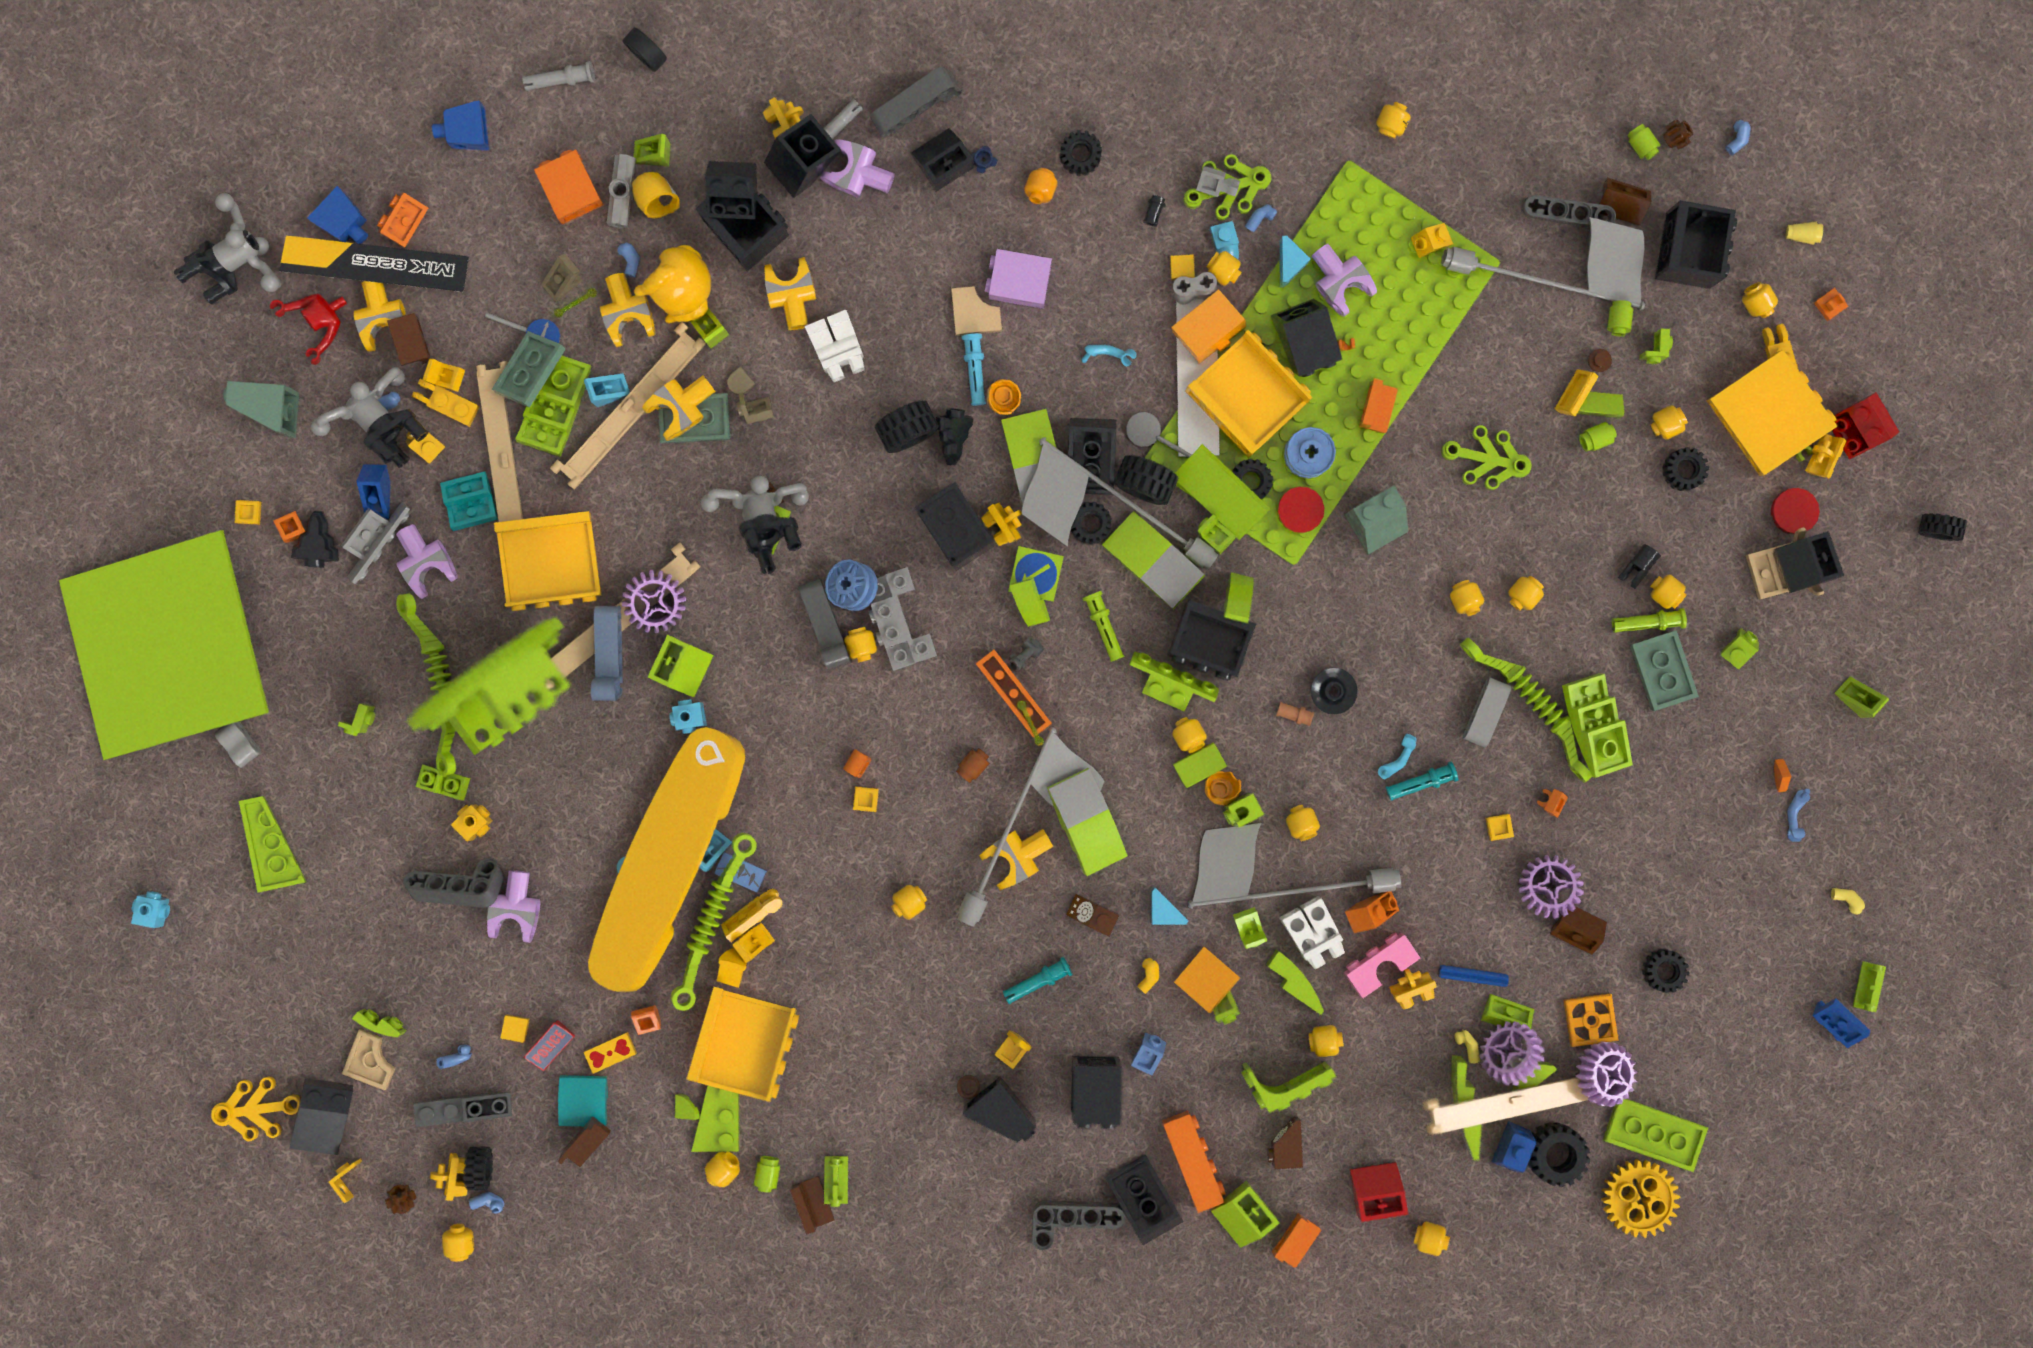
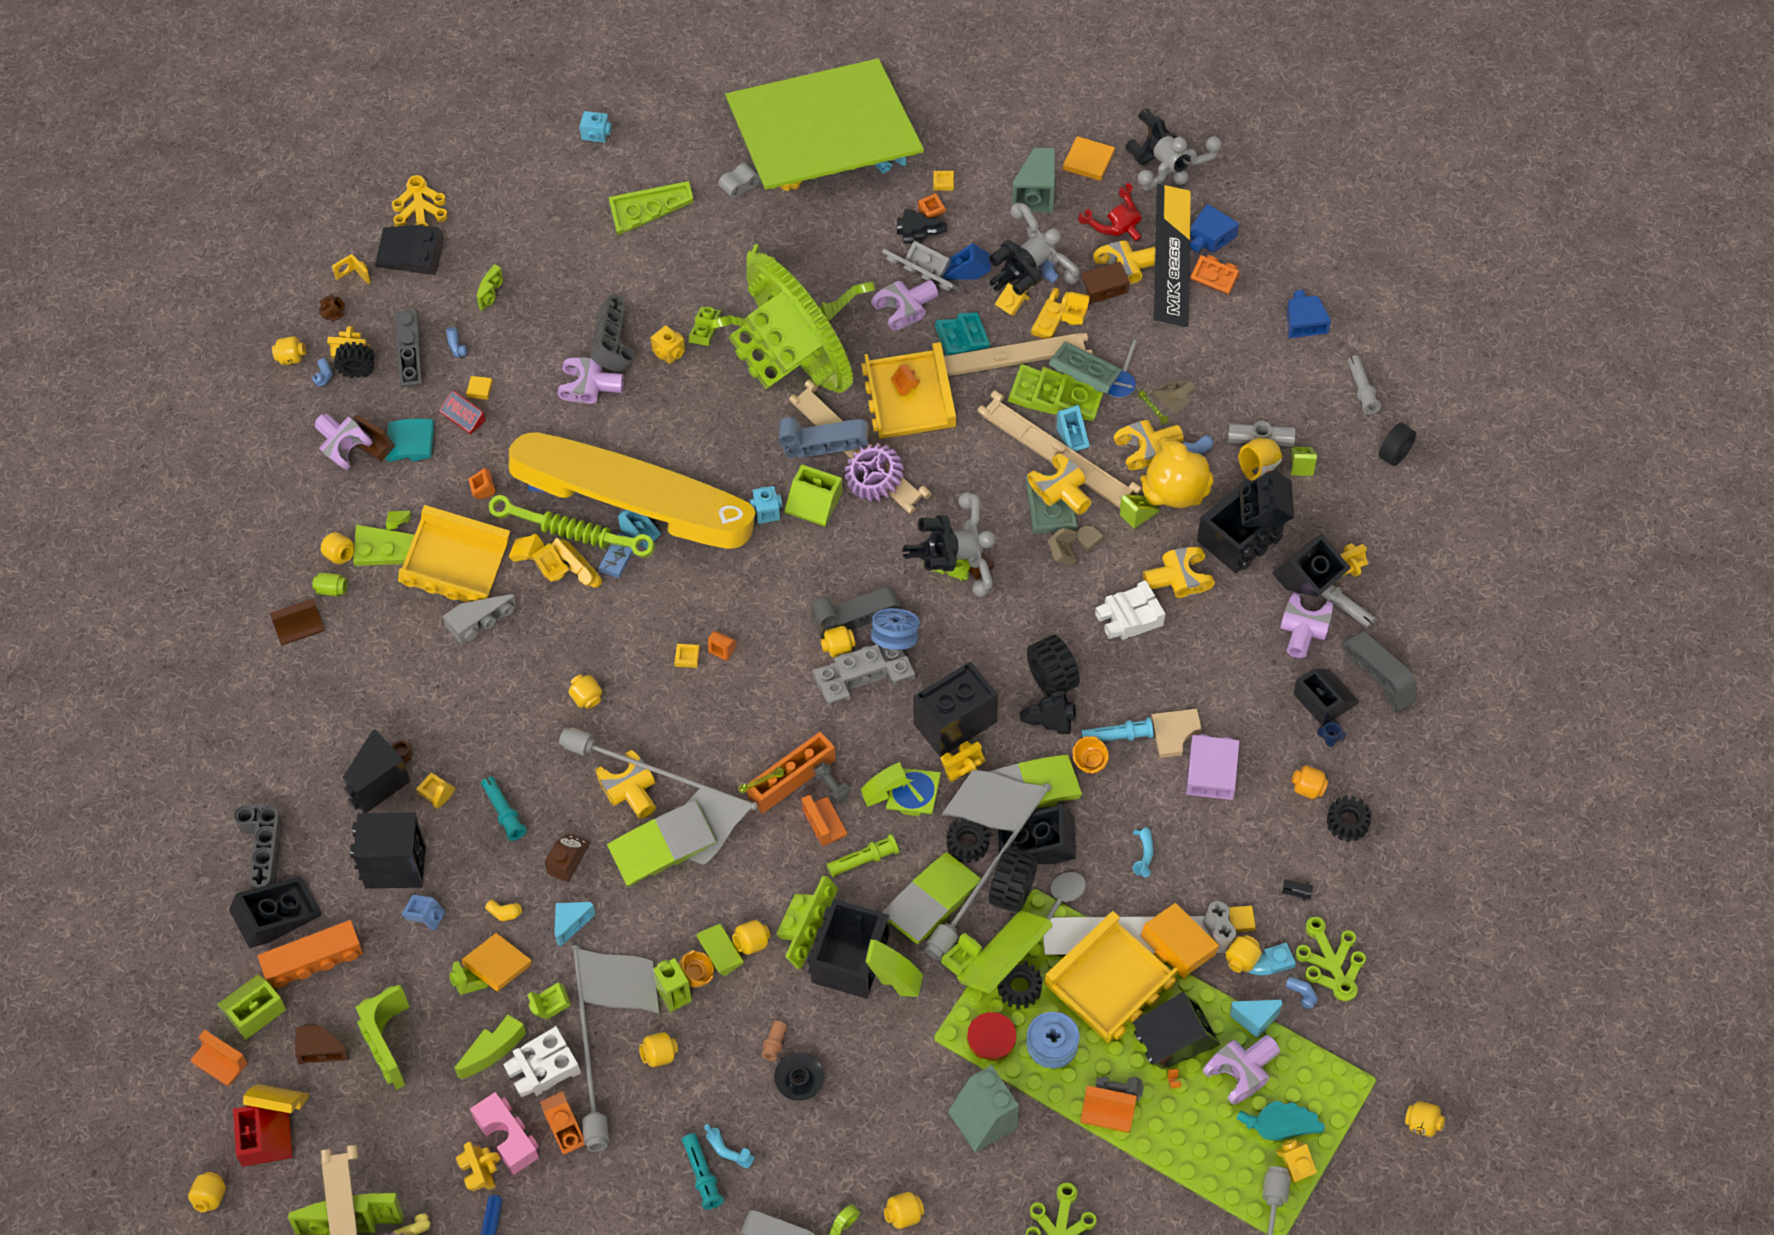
camera: 90 degrees right, 30 degrees down
(224, 346) = (1088, 158): none -> light orange tile
(367, 1061) = (455, 282): tan tile -> none
(536, 565) = (904, 380): none -> orange tile
(568, 186) = (1259, 392): orange panel -> none
(583, 1176) = (340, 438): none -> lavender connector
(610, 1052) = (452, 460): yellow tile -> none
(815, 1022) = (475, 616): none -> light grey slope
(836, 1180) = (318, 643): lime hinge -> none
(973, 765) = (720, 742): dark orange brick -> none
(1061, 662) = (823, 820): none -> orange panel
(1213, 182) = (1331, 939): light grey plate -> none
(1325, 1041) = (426, 1078): yellow head -> none
(1345, 1182) = (275, 1098): none -> yellow slope
(1359, 382) = (1133, 1086): none -> dark grey bar
(1392, 249) = (1282, 1121): none -> teal animal

